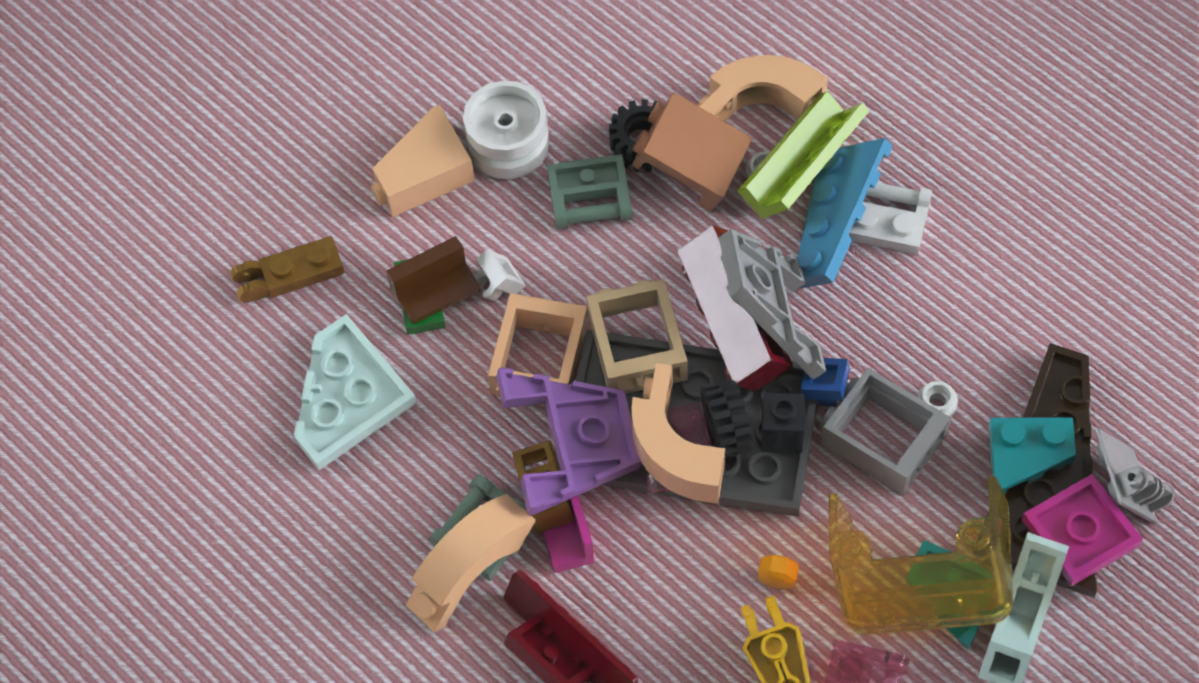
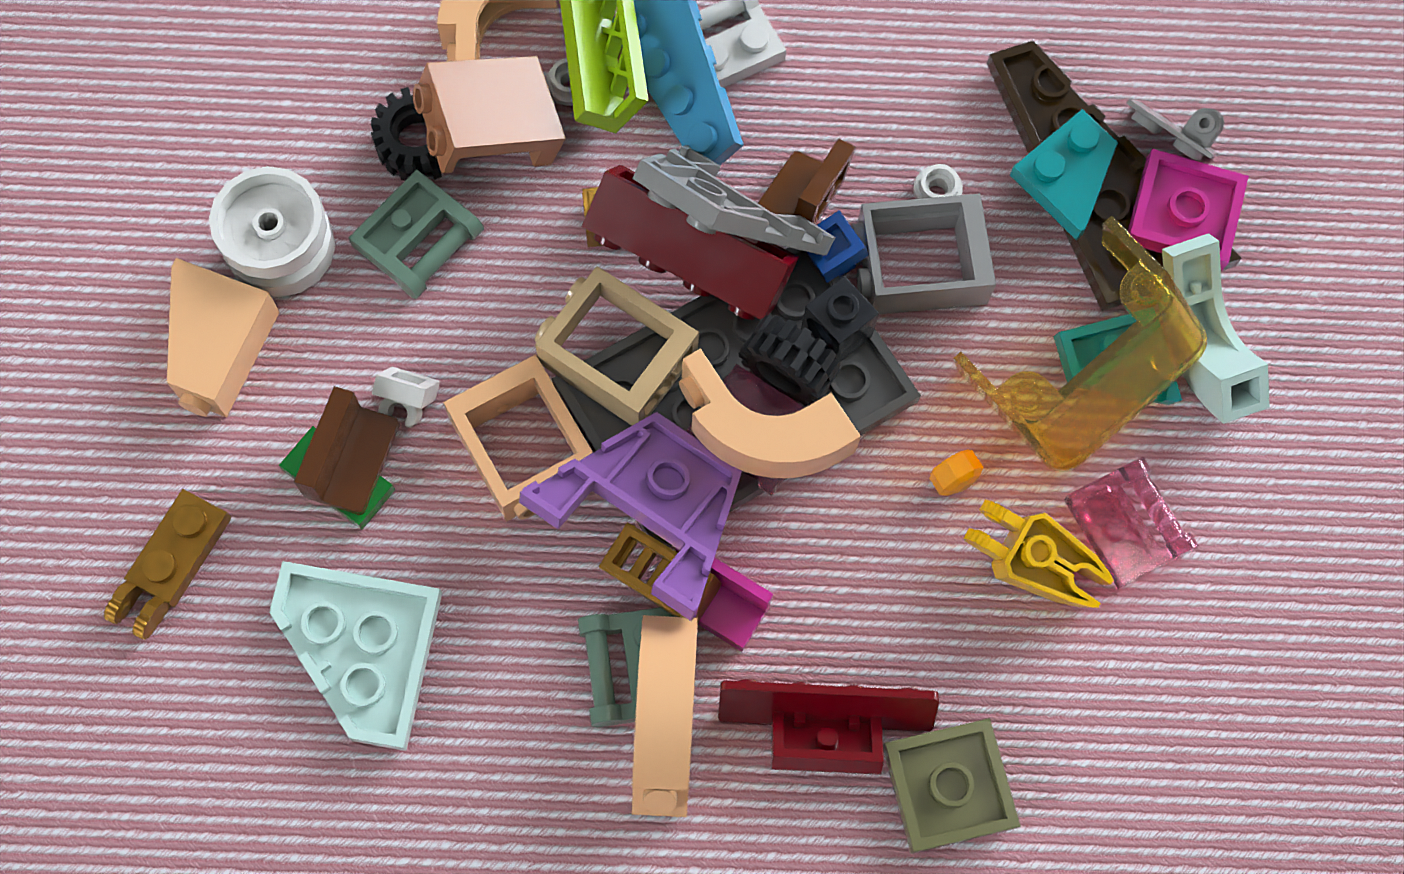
camera: 50 degrees left, 10 degrees up
(851, 335) = (807, 184): none -> reddish brown panel

